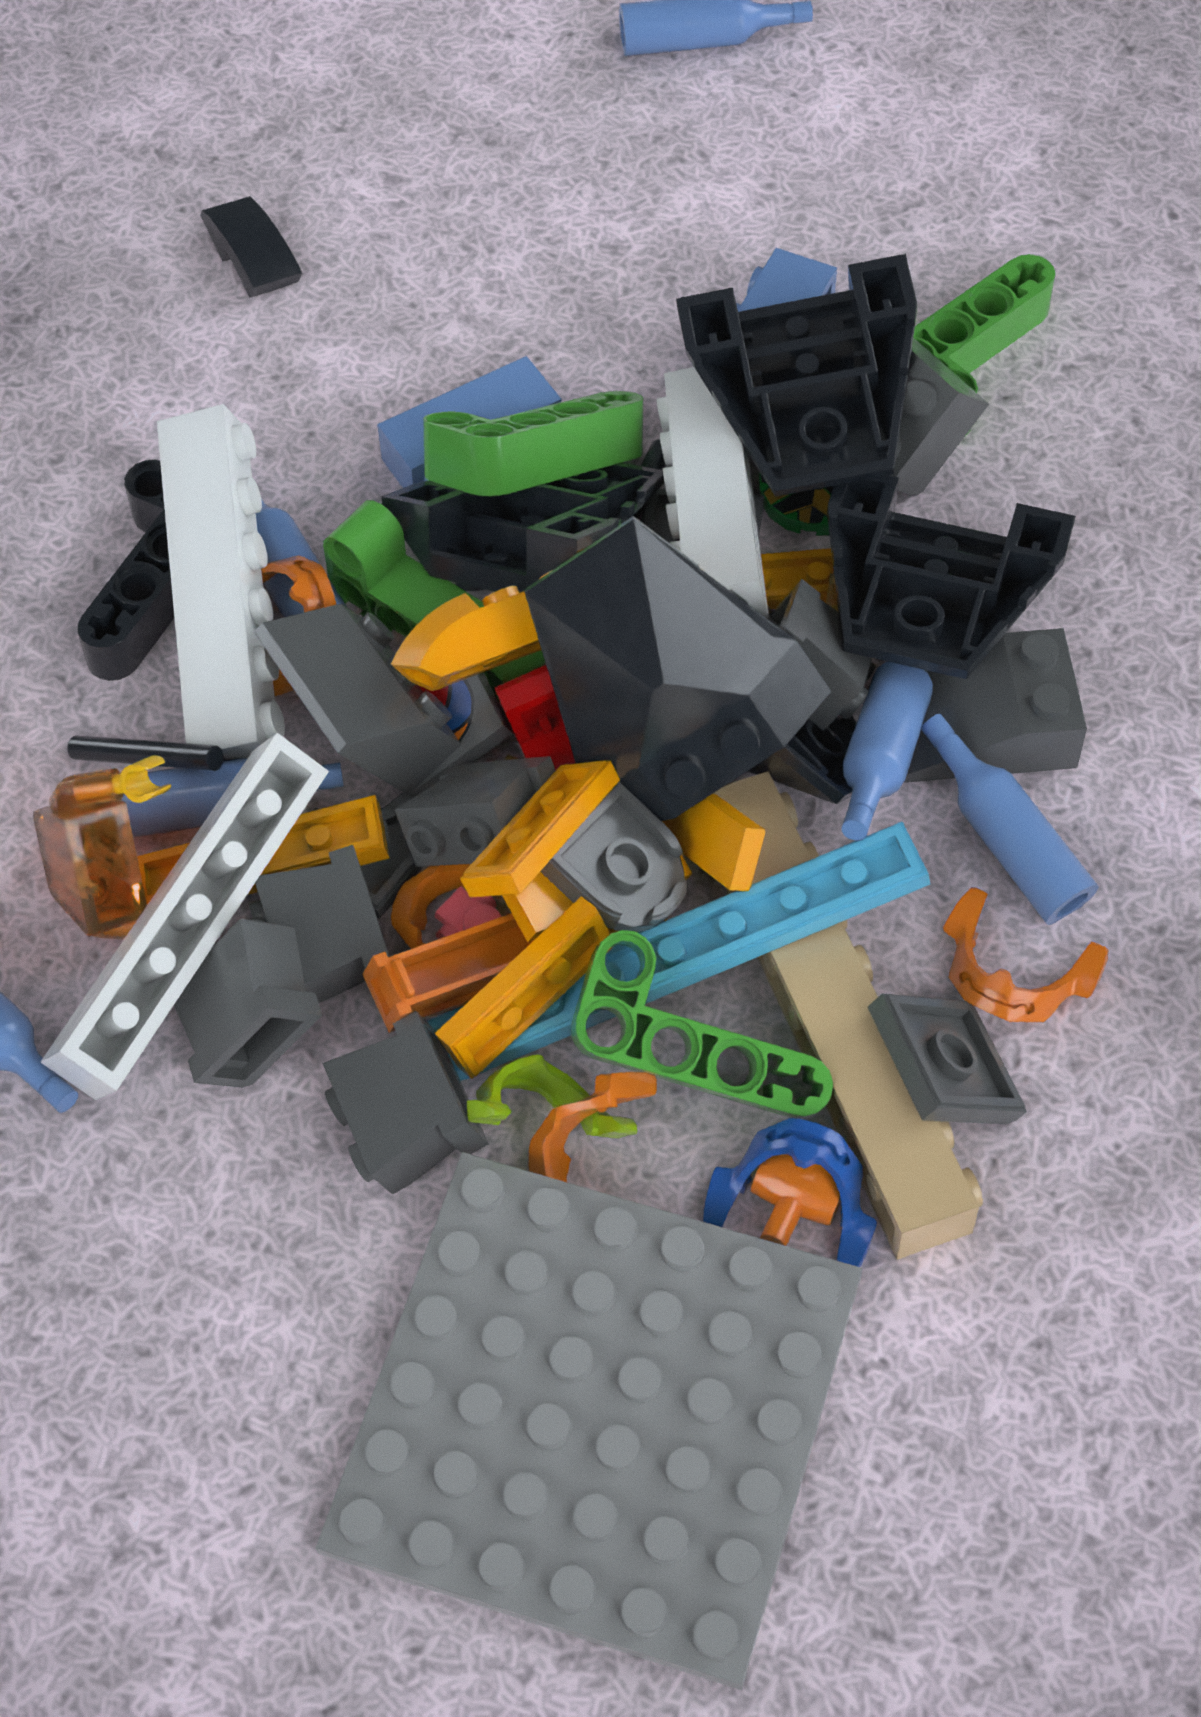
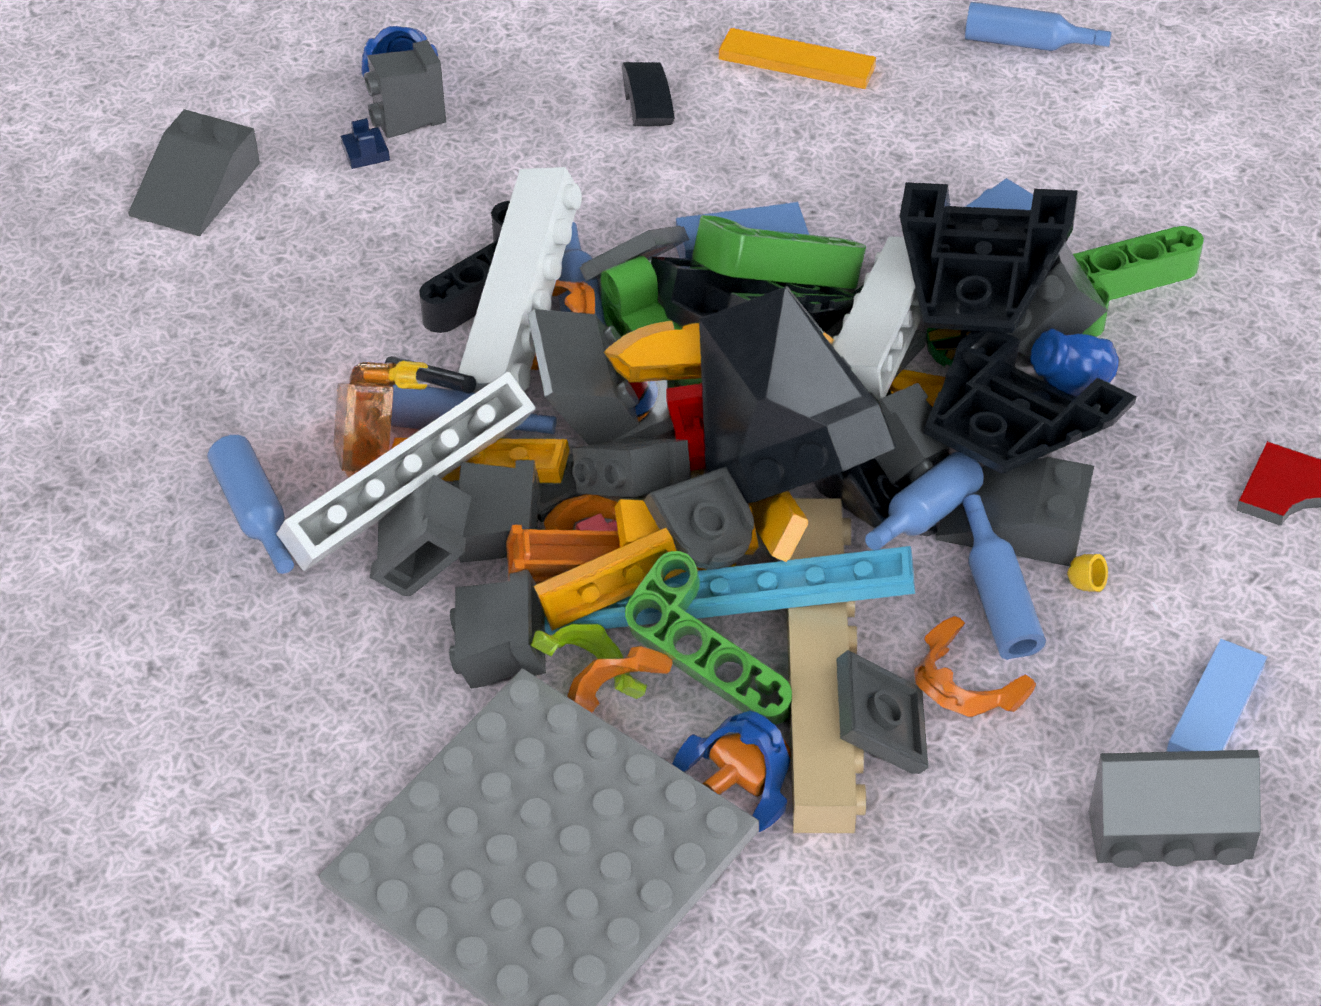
camera: 20 degrees right, 10 degrees down
(348, 494) = (647, 244): none -> dark grey tile
(422, 140) = (797, 58): none -> light orange tile
(539, 829) = (656, 477): light orange tile -> none
(971, 488) = (1073, 360): none -> blue hair
(1102, 773) = (1088, 568): none -> yellow hinge

